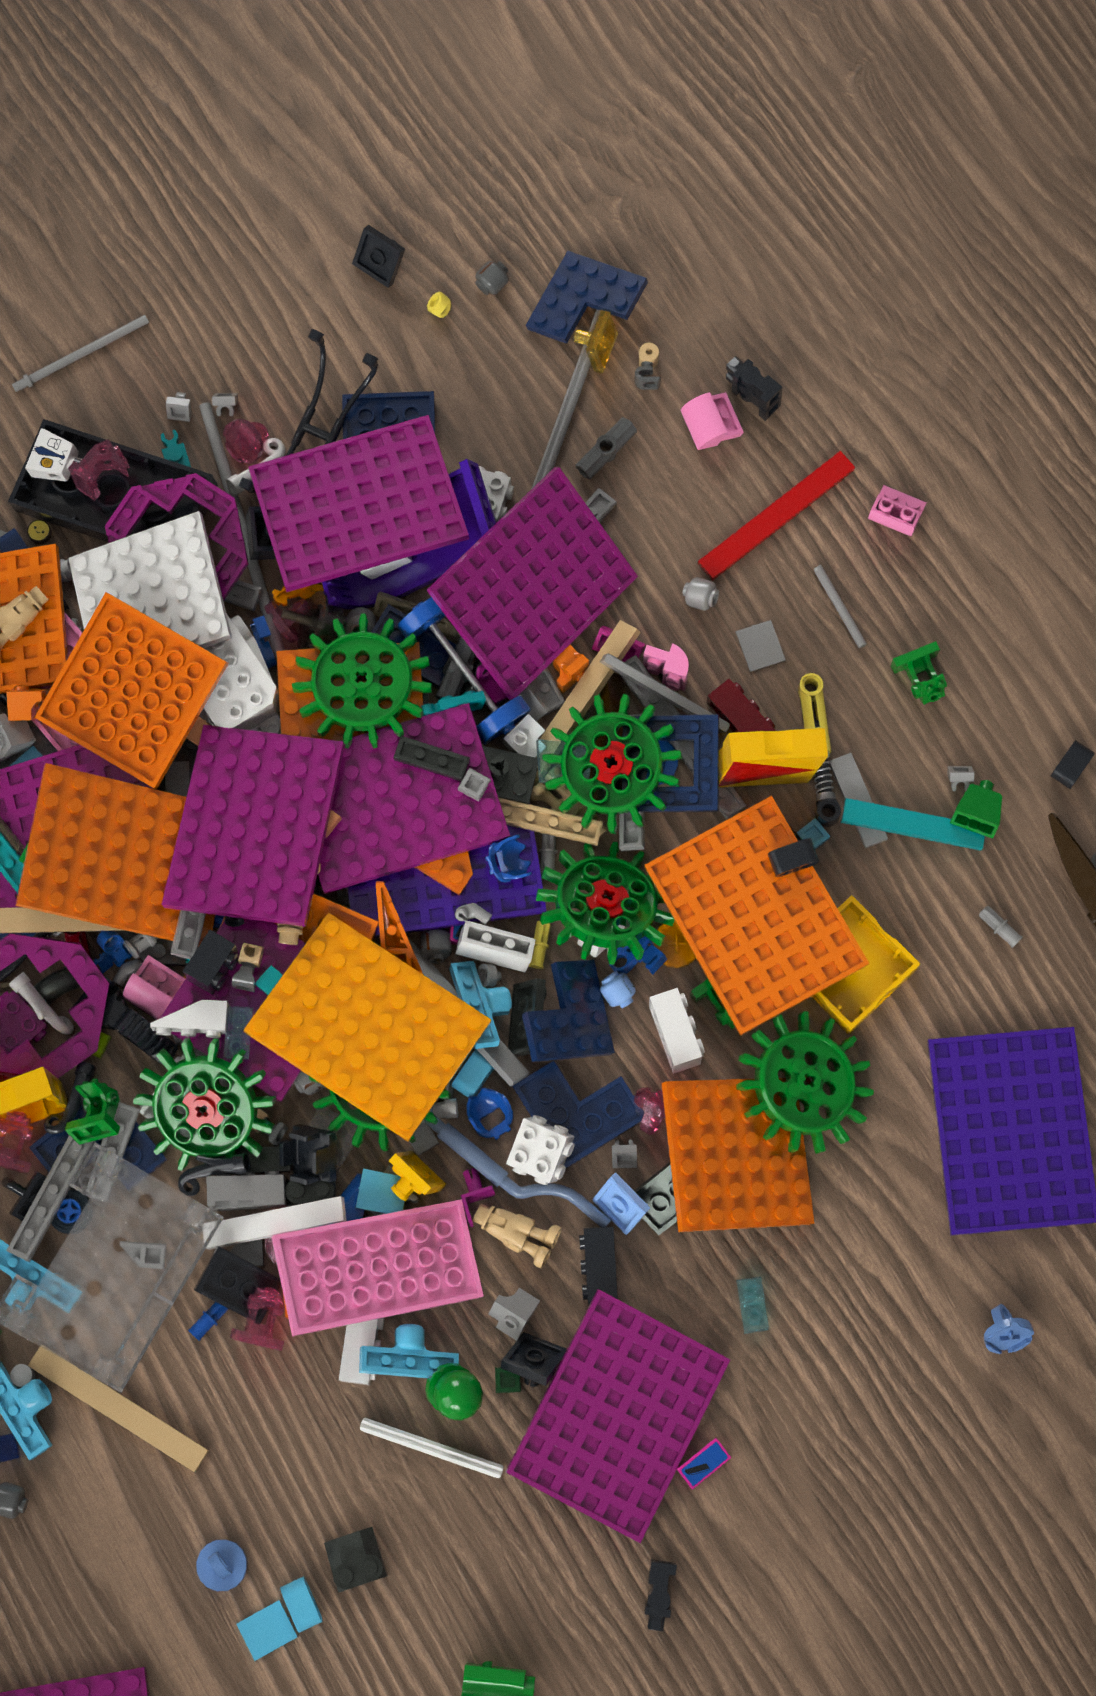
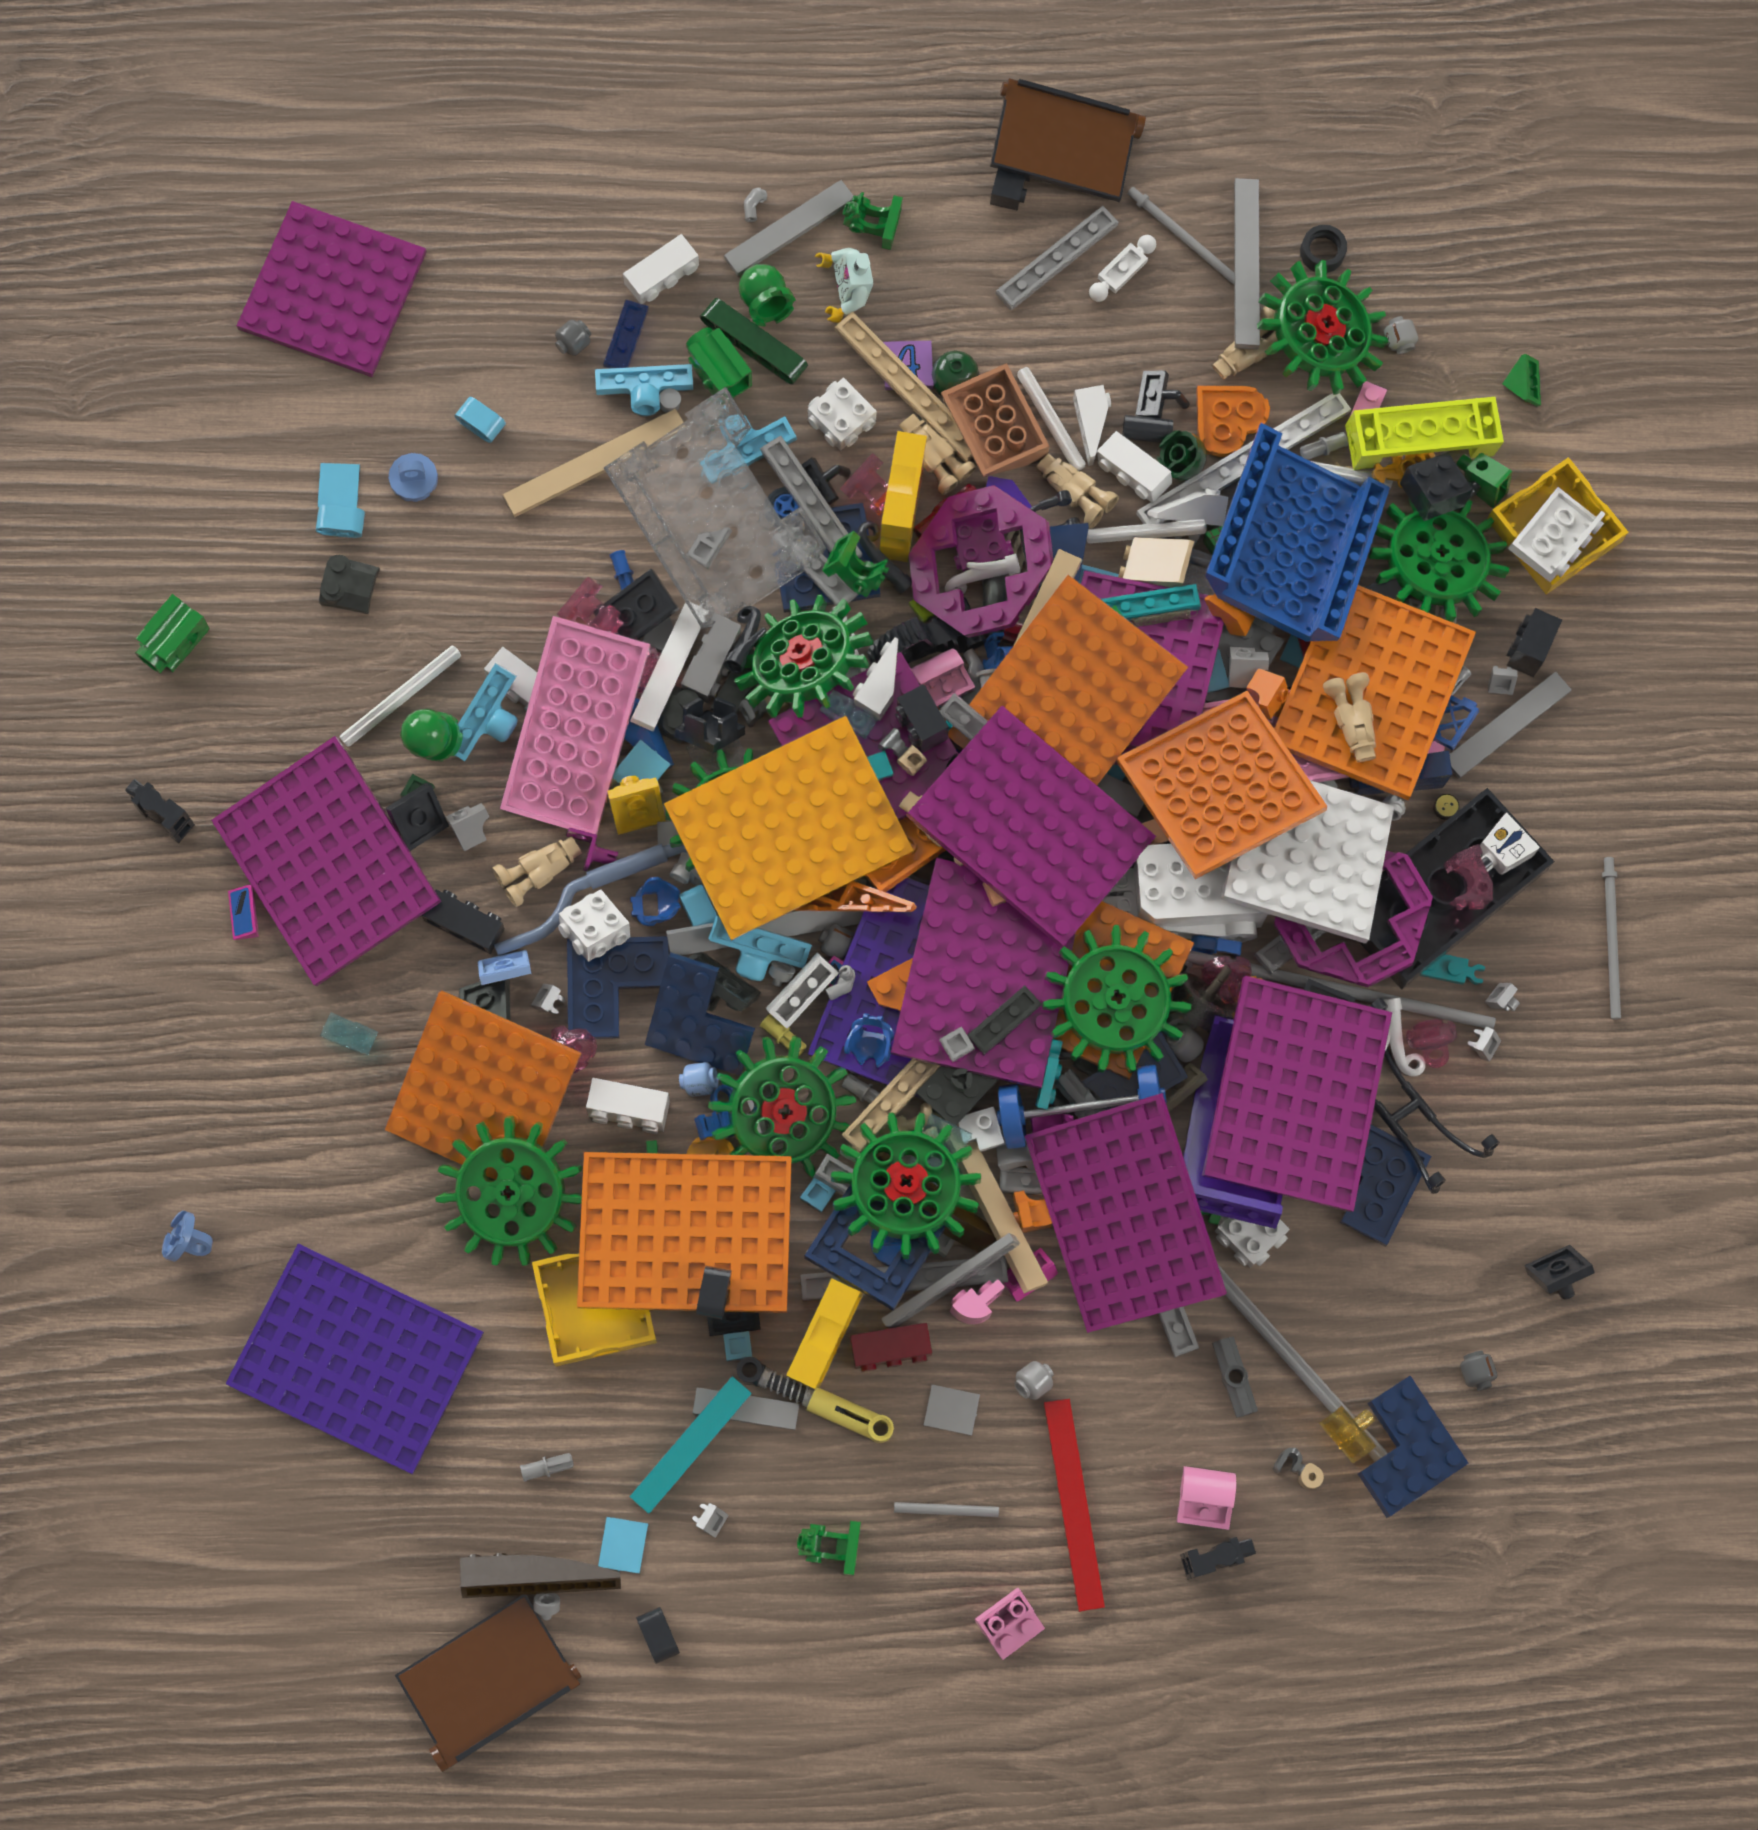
camera: 110 degrees right, 0 degrees up
(134, 1536) = (480, 419): none -> medium azure beam
(439, 305) = (1477, 1303): light yellow tile -> none
(655, 843) = (817, 1194): none -> medium azure tile
(979, 809) = (667, 1514): green torso -> none
(1021, 834) = (623, 1545): none -> medium azure window

